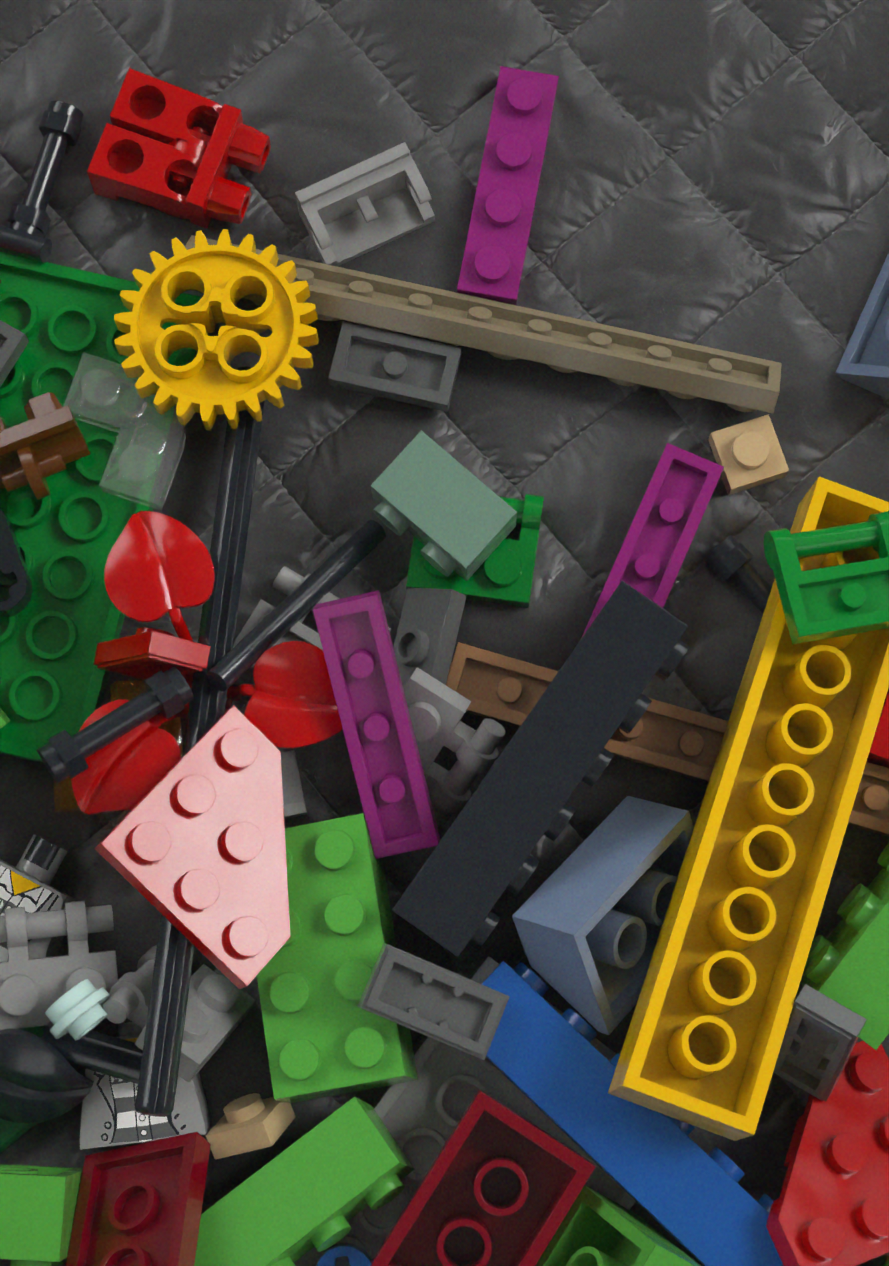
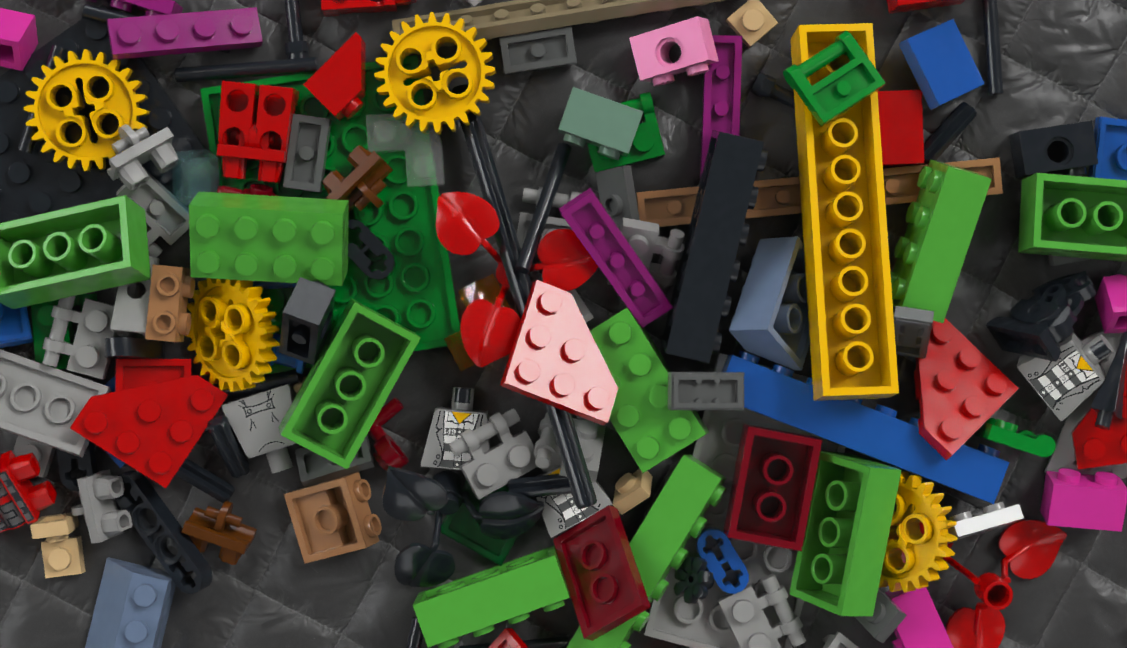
camera: 25 degrees left, 10 degrees up
(66, 754) = (497, 288): black bar -> none
(71, 282) = (342, 79): none -> red slope
(77, 1010) = (523, 470): light aqua plate -> none
(150, 652) = (477, 268): red plate -> none
(576, 429) = (653, 49): none -> bright pink brick

